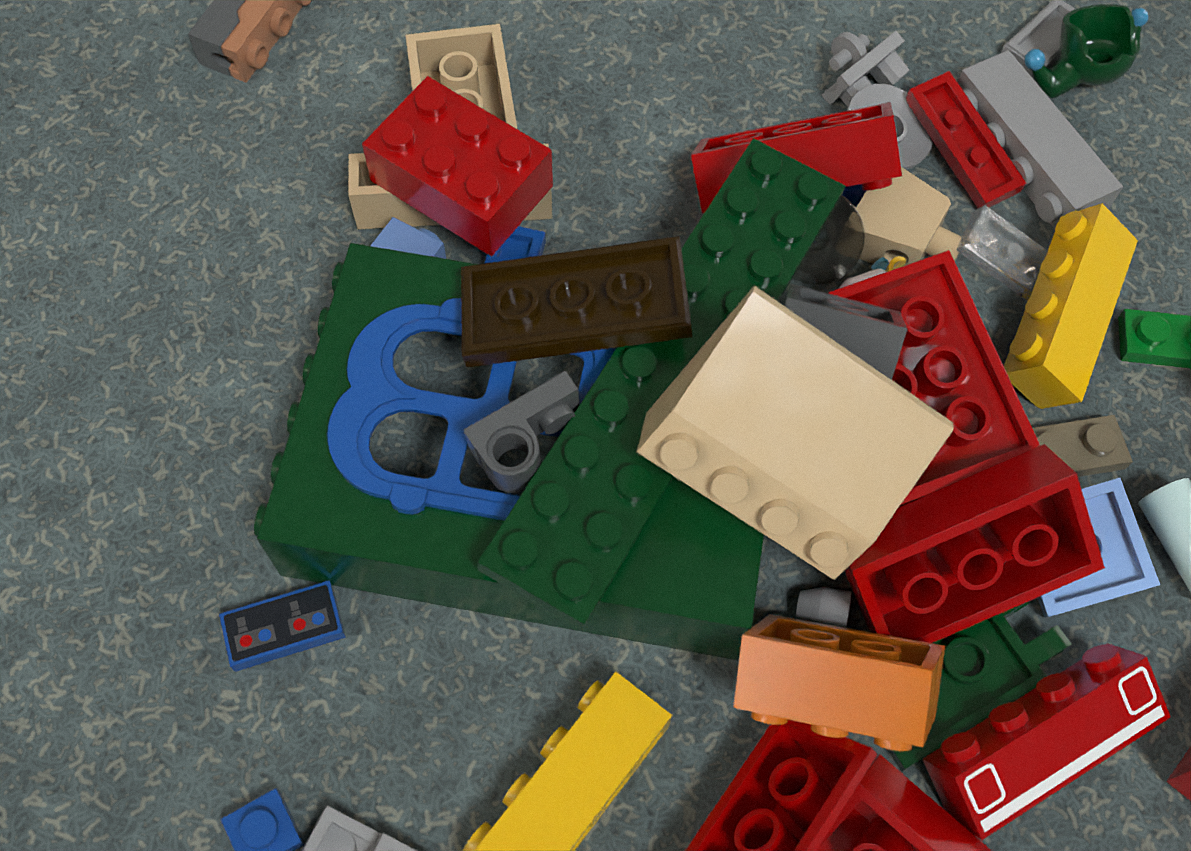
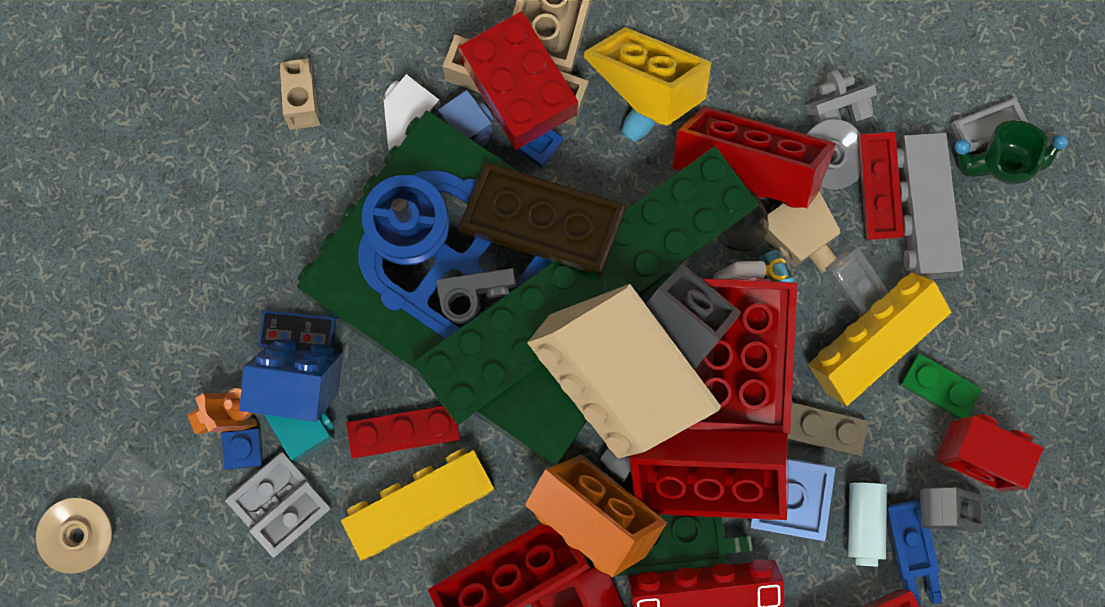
camera: 20 degrees right, 15 degrees up
(165, 315) = (299, 94): none -> tan leg
(211, 779) = (220, 413): none -> orange hips
(298, 682) = (291, 380): none -> blue brick
(311, 269) = (402, 104): none -> white slope
(333, 754) = (301, 436): none -> teal slope
(383, 373) = (405, 220): none -> blue wheel
(496, 699) = (401, 432): none -> red plate
(625, 118) = (651, 74): none -> yellow slope
(631, 183) = (636, 126): none -> medium azure hose

